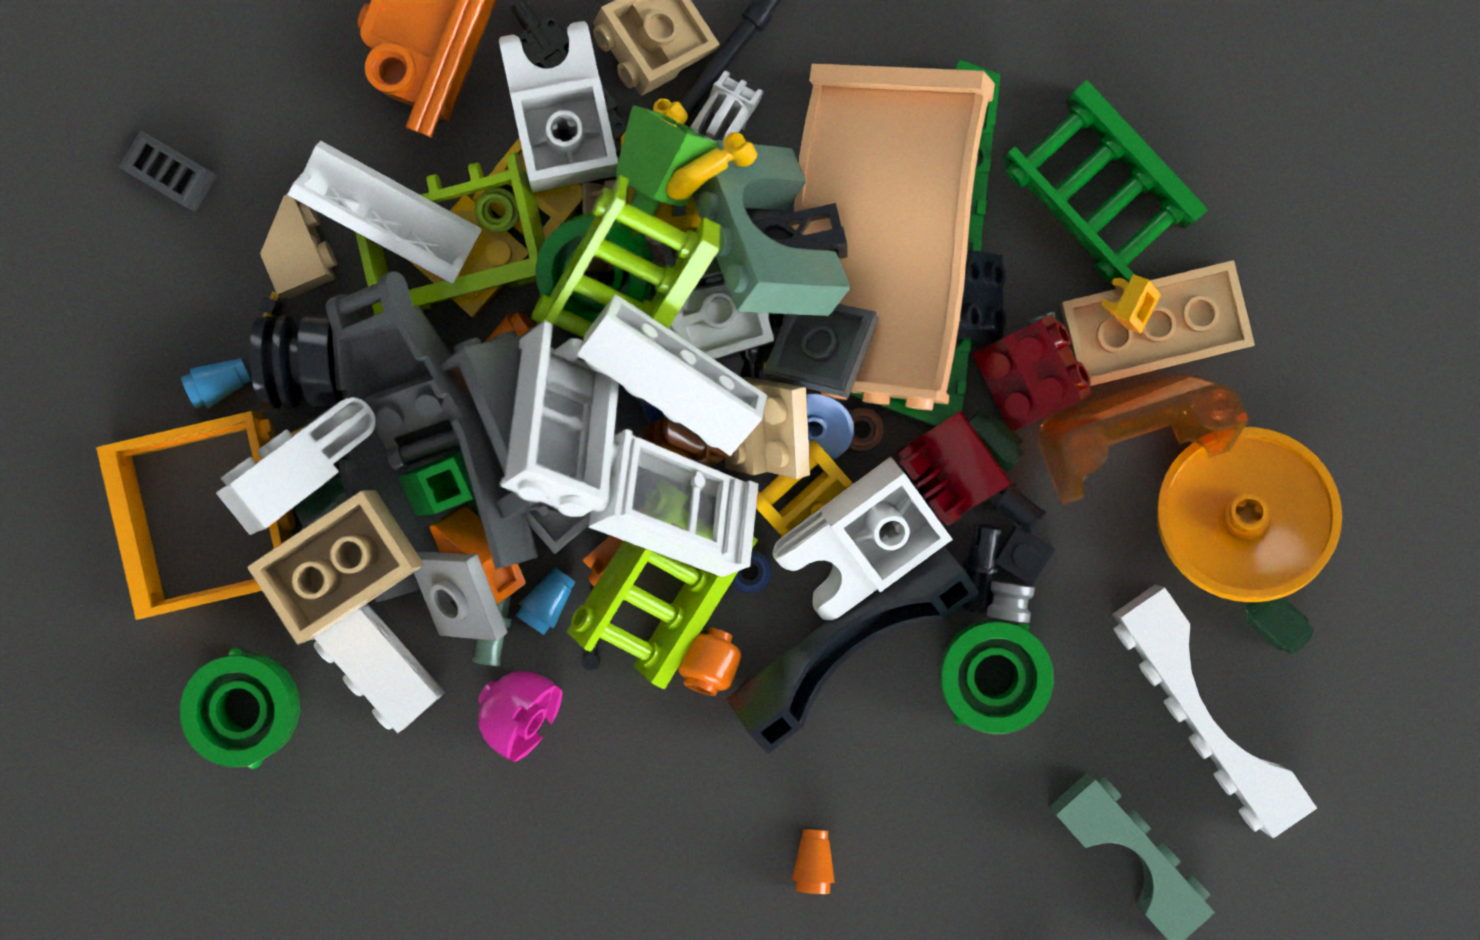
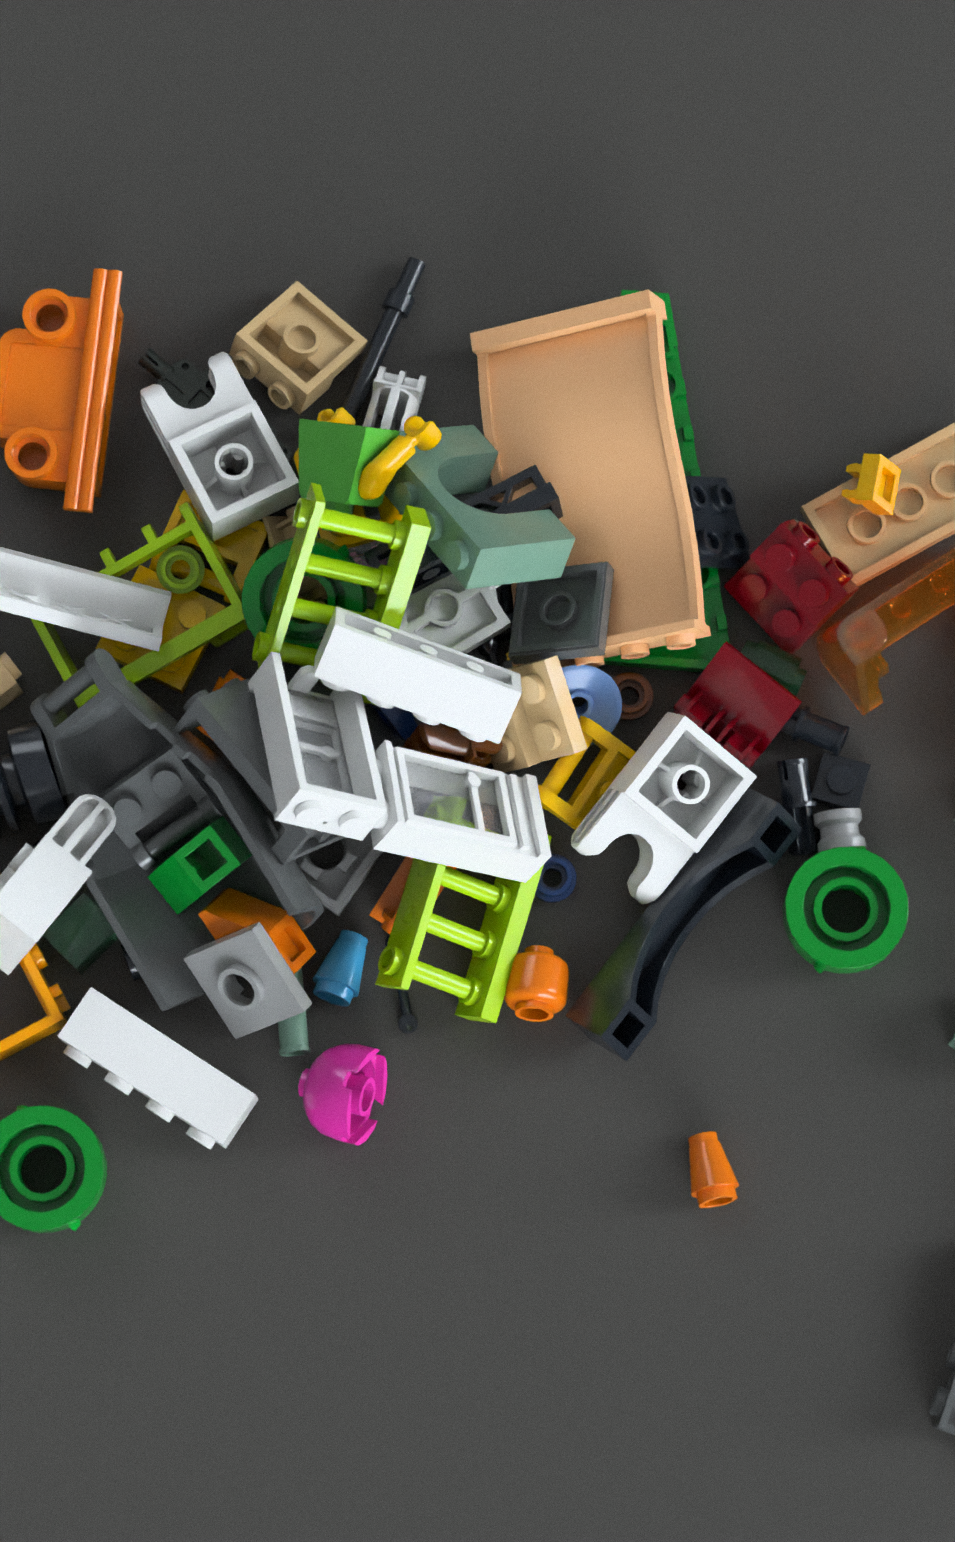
camera: 15 degrees left, 10 degrees down
(335, 565) = (114, 973): tan brick -> none
(1116, 143) = (809, 329): green fence -> none

